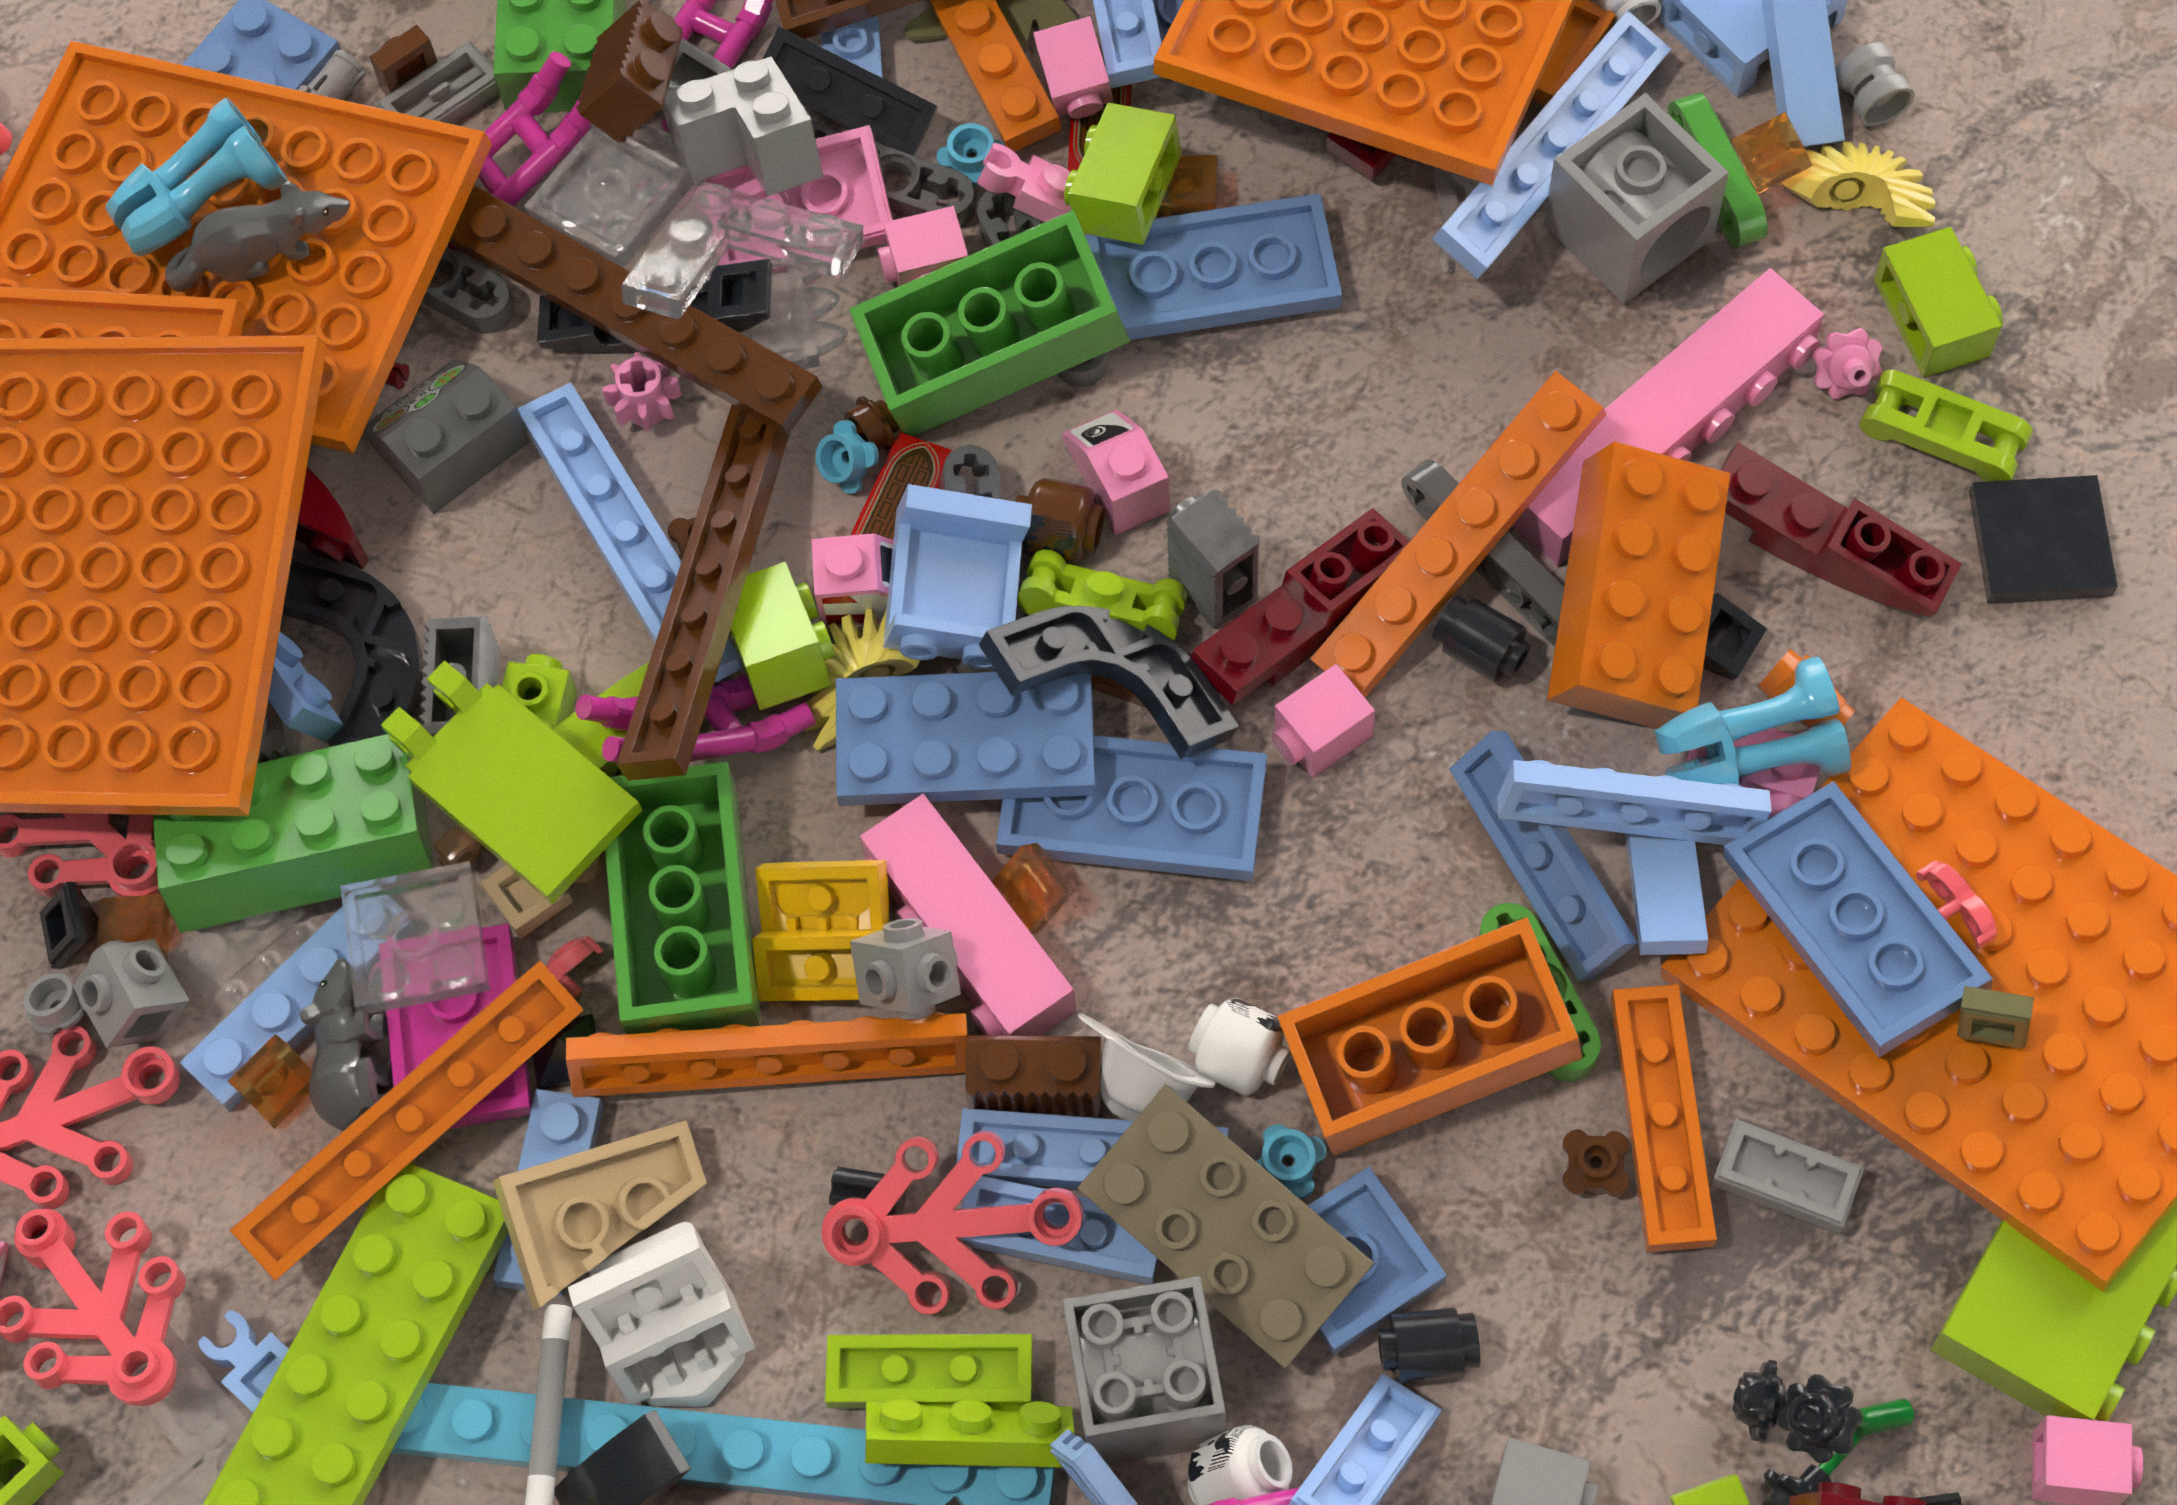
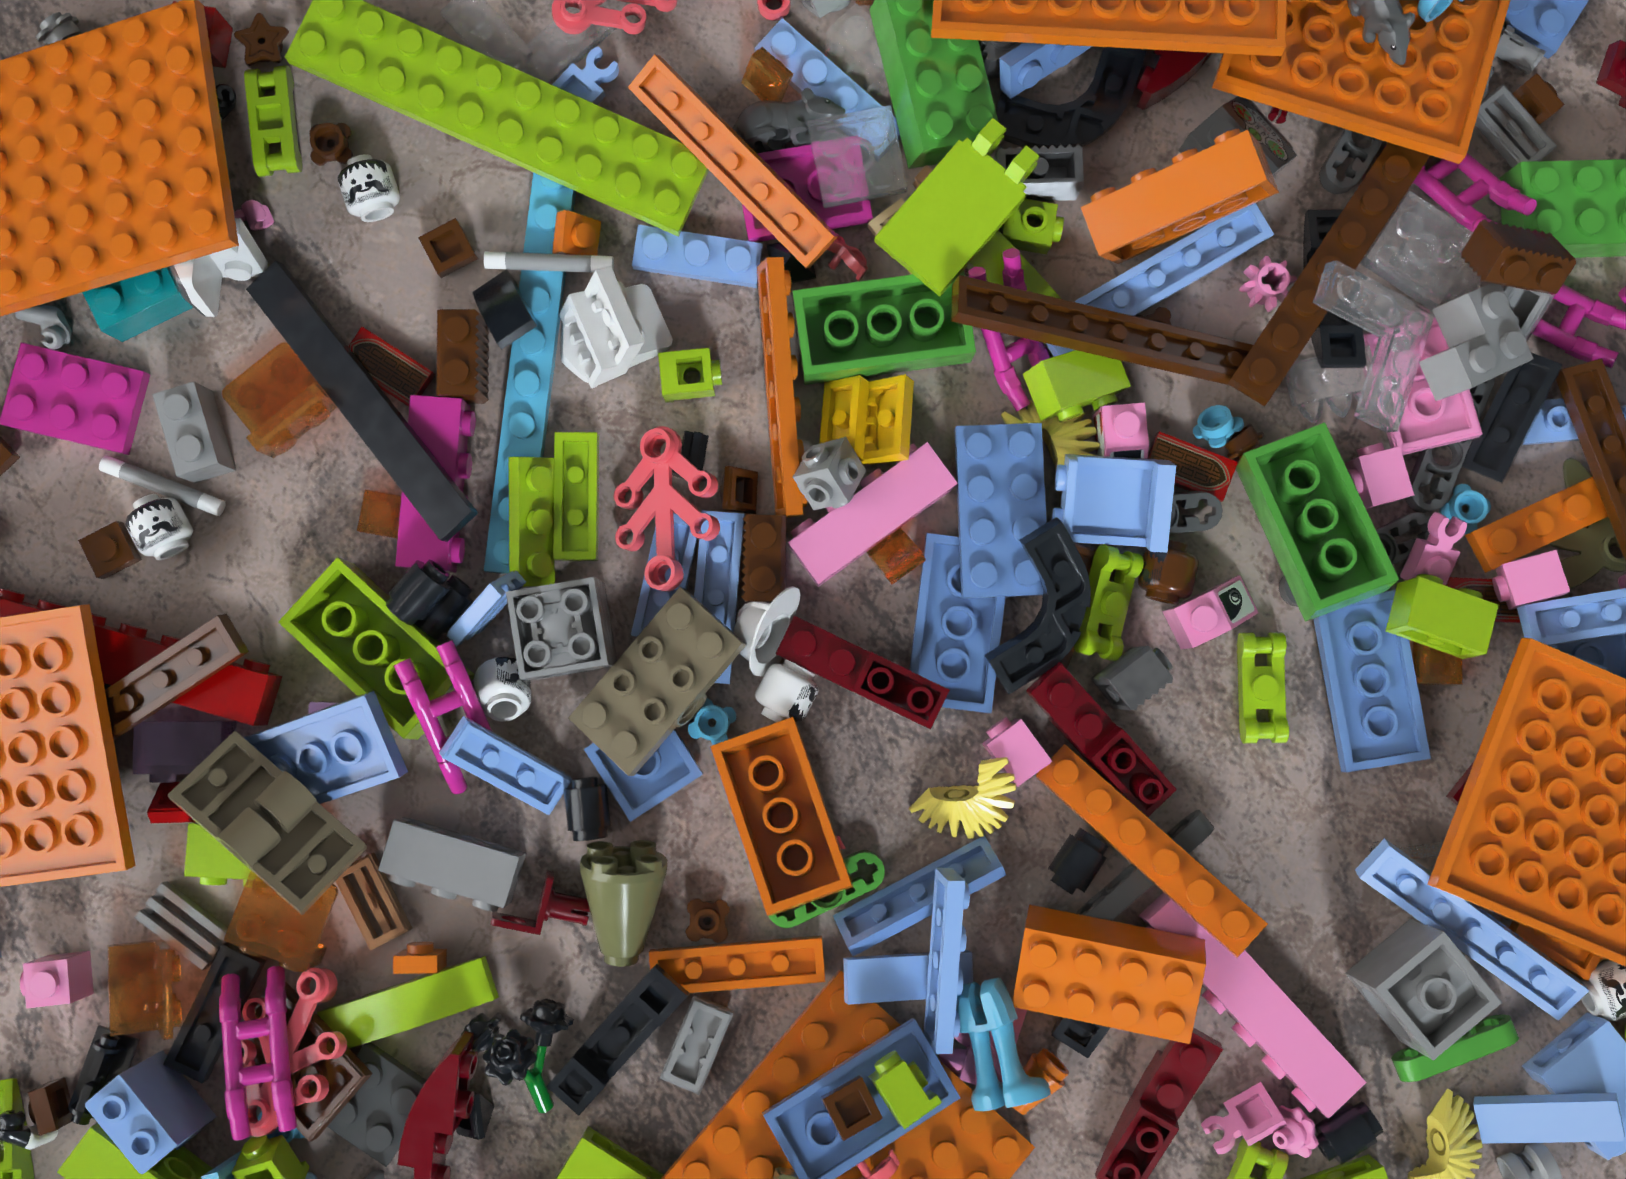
camera: 80 degrees right, 20 degrees up
(504, 1374) = (576, 234): none -> orange plate
(517, 480) = (1179, 197): none -> orange brick
(590, 1203) = (680, 280): tan wing -> none
(742, 1223) = (677, 364): none -> lime brick
(924, 1118) = (739, 489): none -> reddish brown slope
(1209, 928) = (862, 672): none -> dark red slope
(1224, 404) = (1262, 687): none -> lime plate
(1401, 784) = (973, 805): none -> light yellow hair
(1563, 1281) = (622, 895): none -> olive cone
(1584, 1405) = (550, 905): none -> dark red bracket
(1771, 152) = (1465, 1089): clear orange plate -> none
(1782, 1291) = (617, 1039): none -> black slope
(1825, 848) = (902, 1089): none -> lime brick
(1831, 419) = (1250, 1116): none -> bright pink plate
(1843, 295) = (1347, 1132): none -> black brick
(1856, 916) = (851, 1107): none -> reddish brown plate

